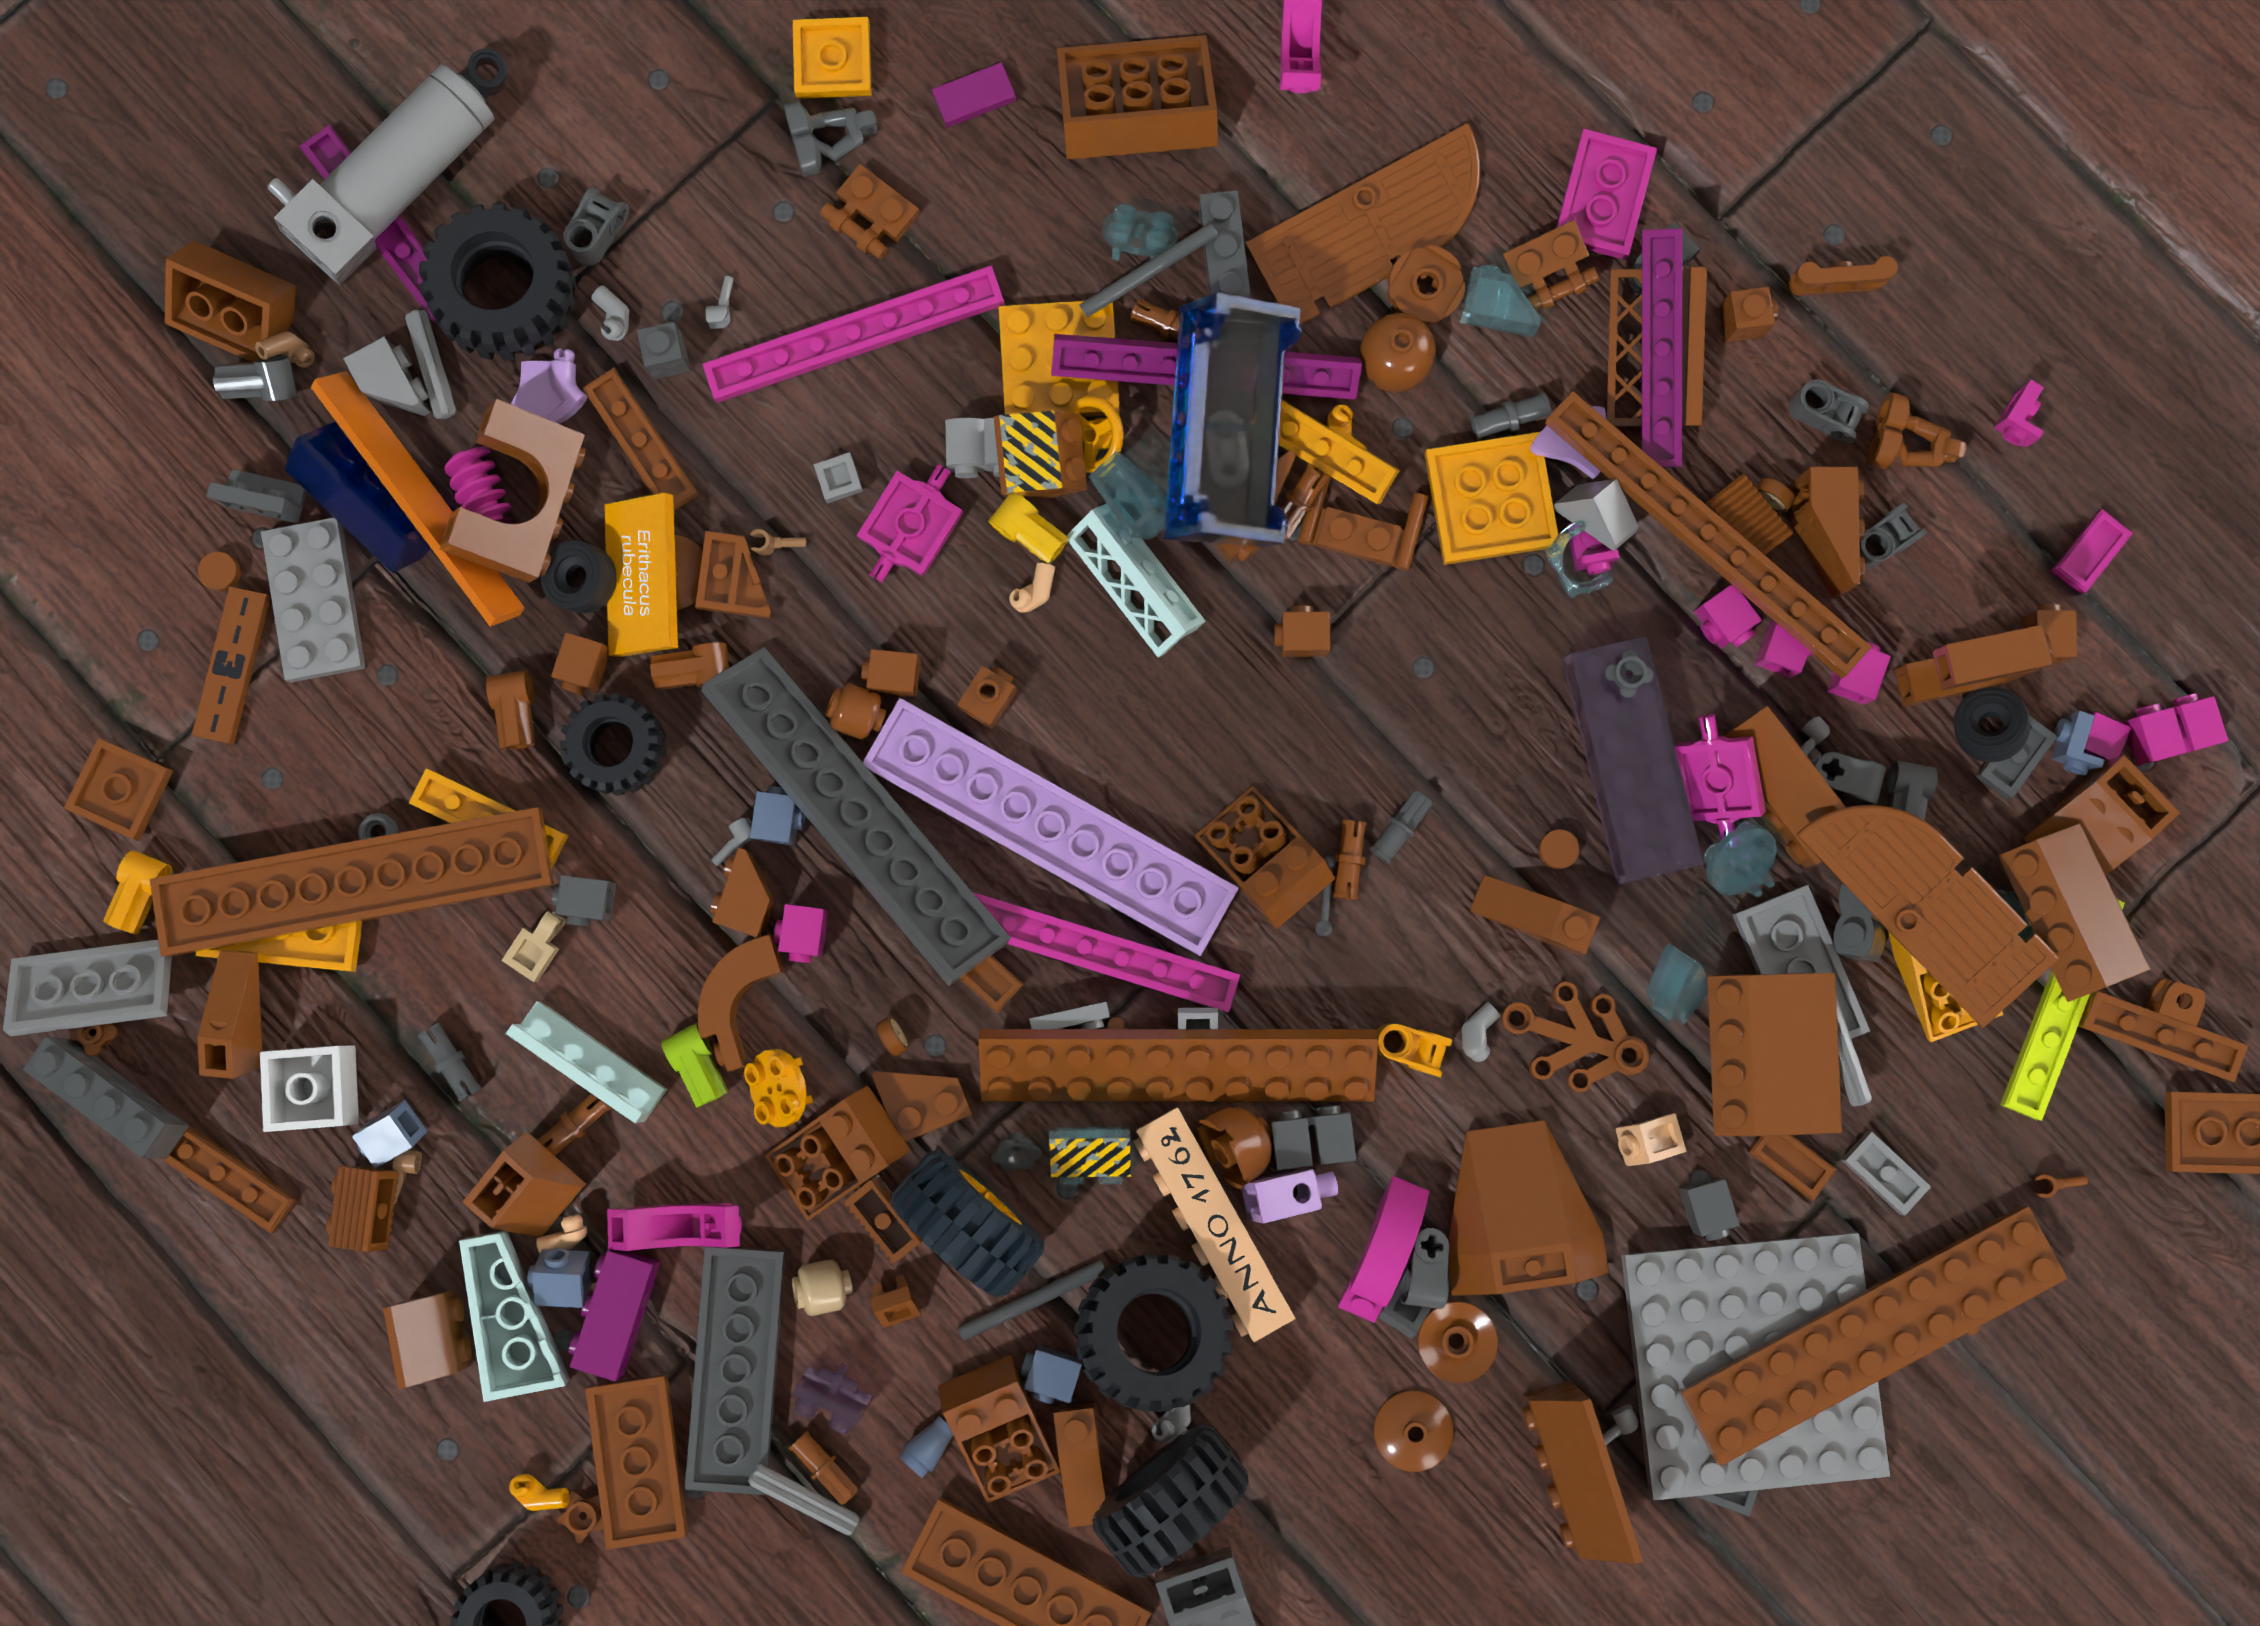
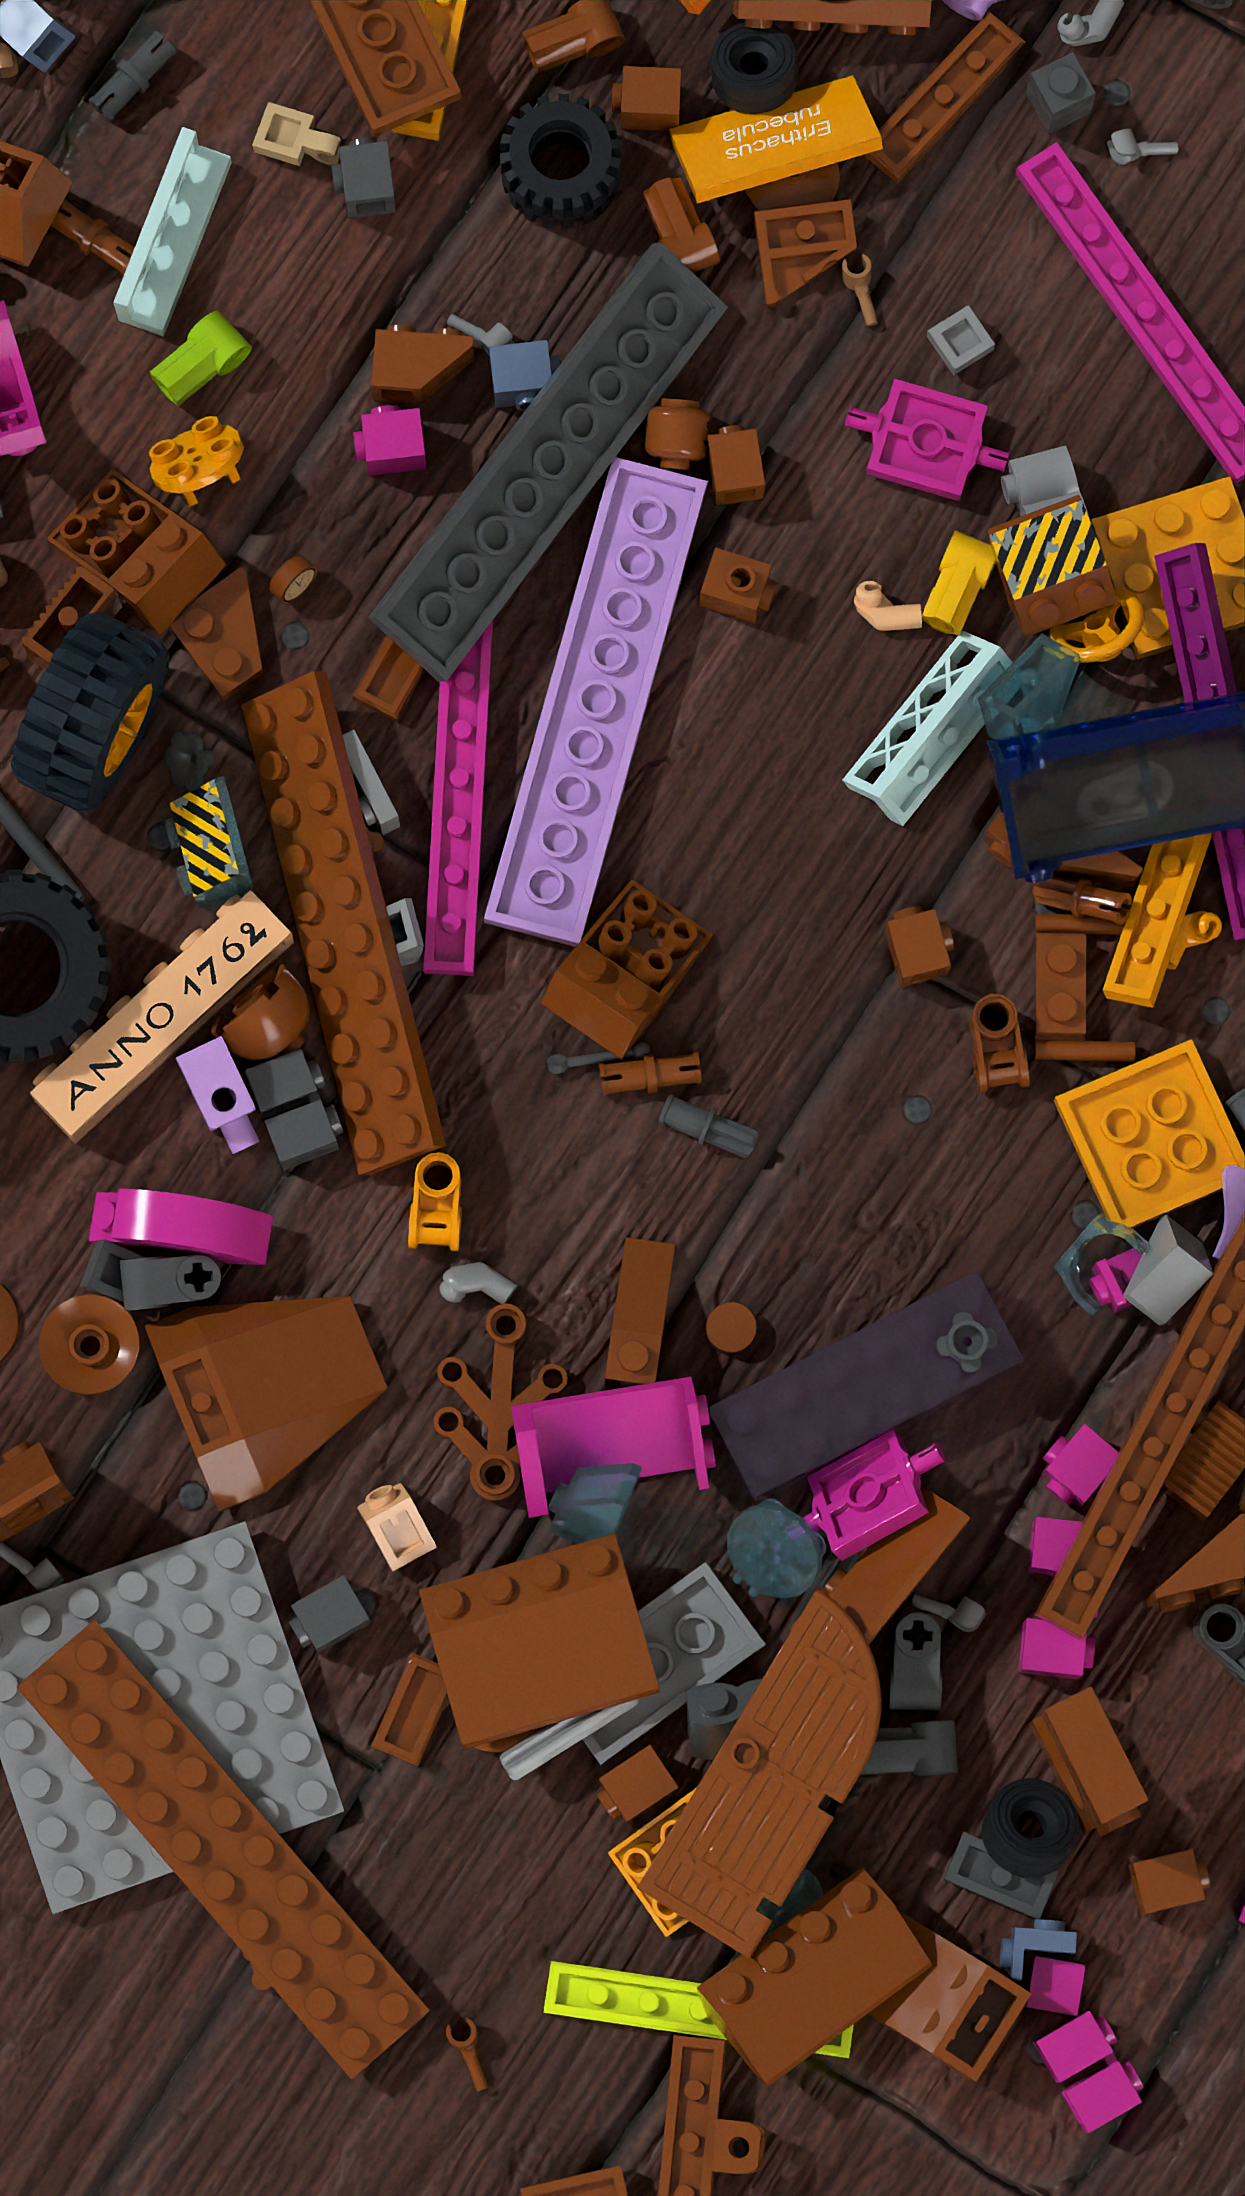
camera: 70 degrees right, 5 degrees down
(724, 990) = (296, 369): dark orange arch -> none
(1402, 595) = (998, 1048): none -> dark orange piece
(1627, 960) = (638, 1424): none -> dark pink panel
(1886, 1173) = (427, 1828): light grey plate -> none
(1893, 1008) = (635, 1786): none -> dark orange brick

